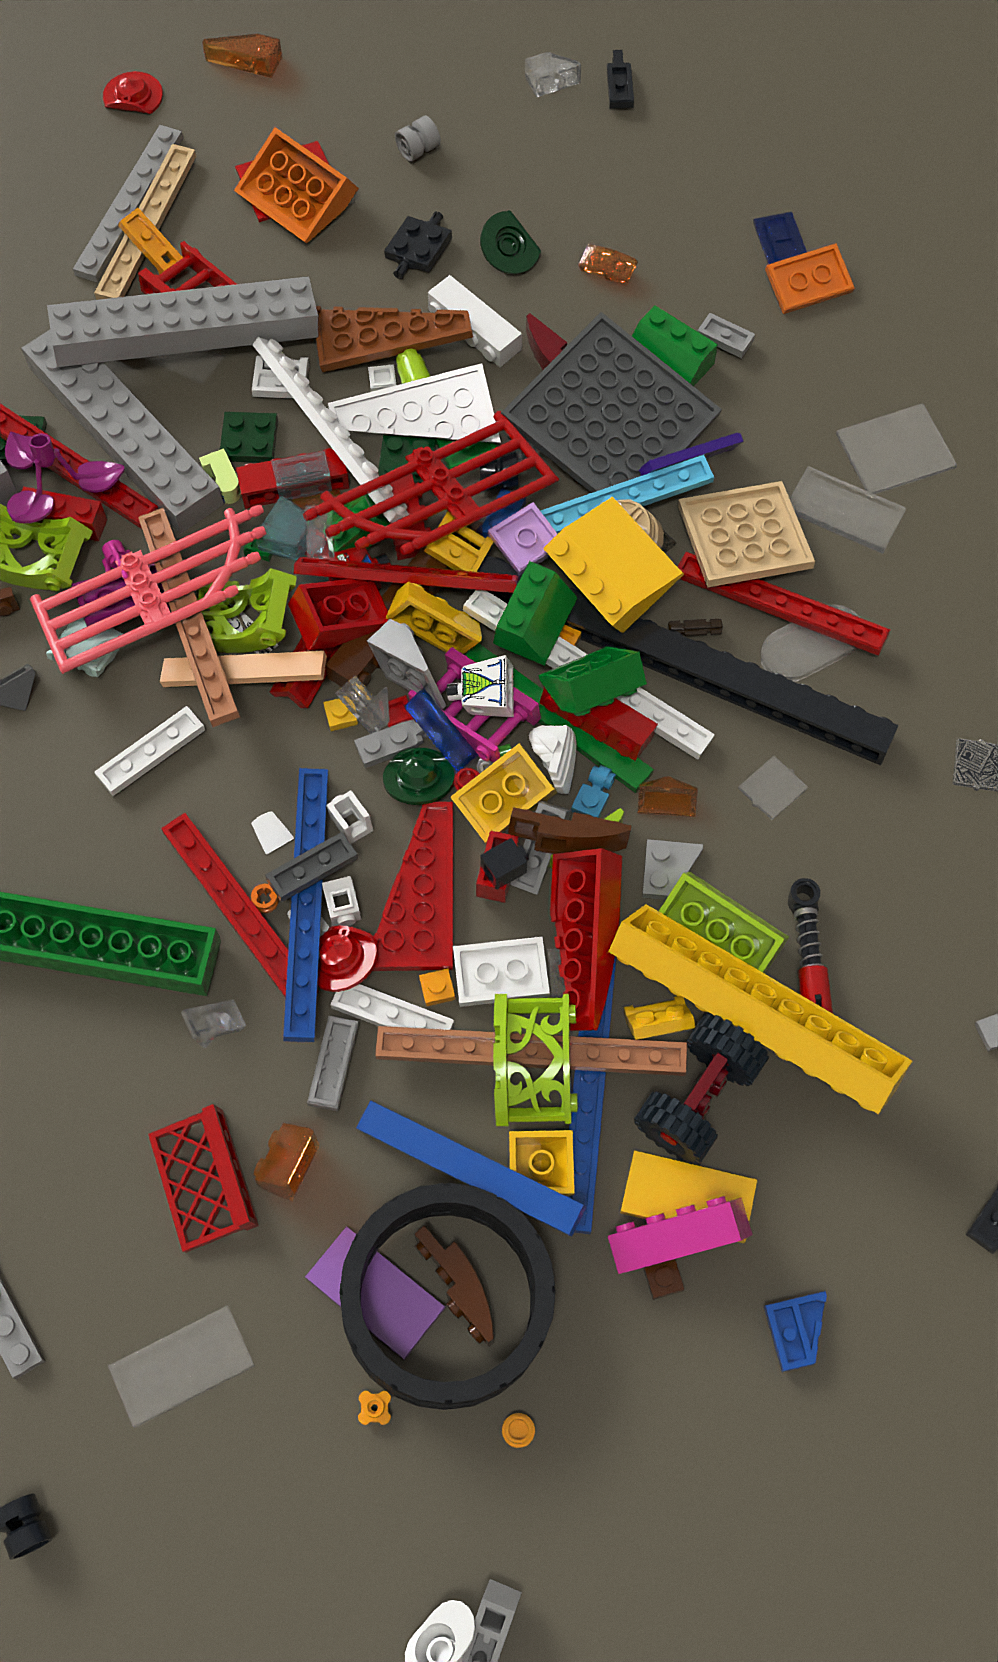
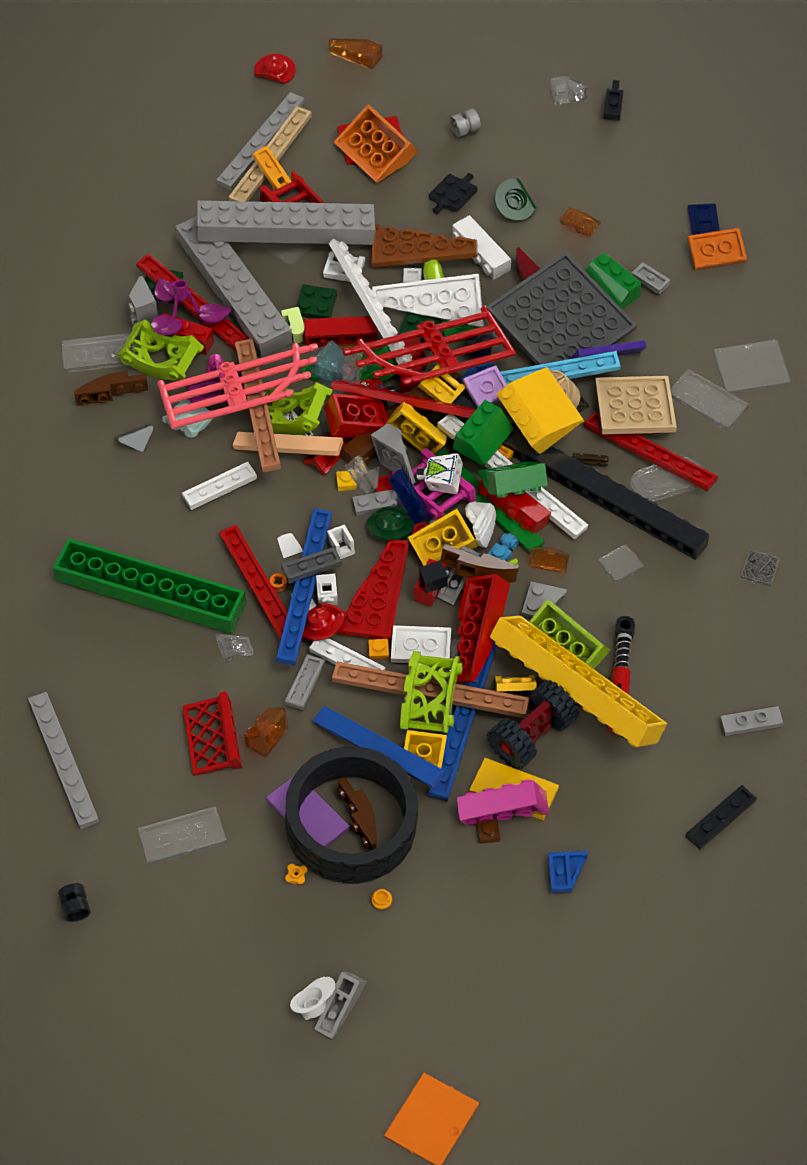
camera: 10 degrees right, 10 degrees down
(302, 475) = (347, 329): clear light blue panel -> none

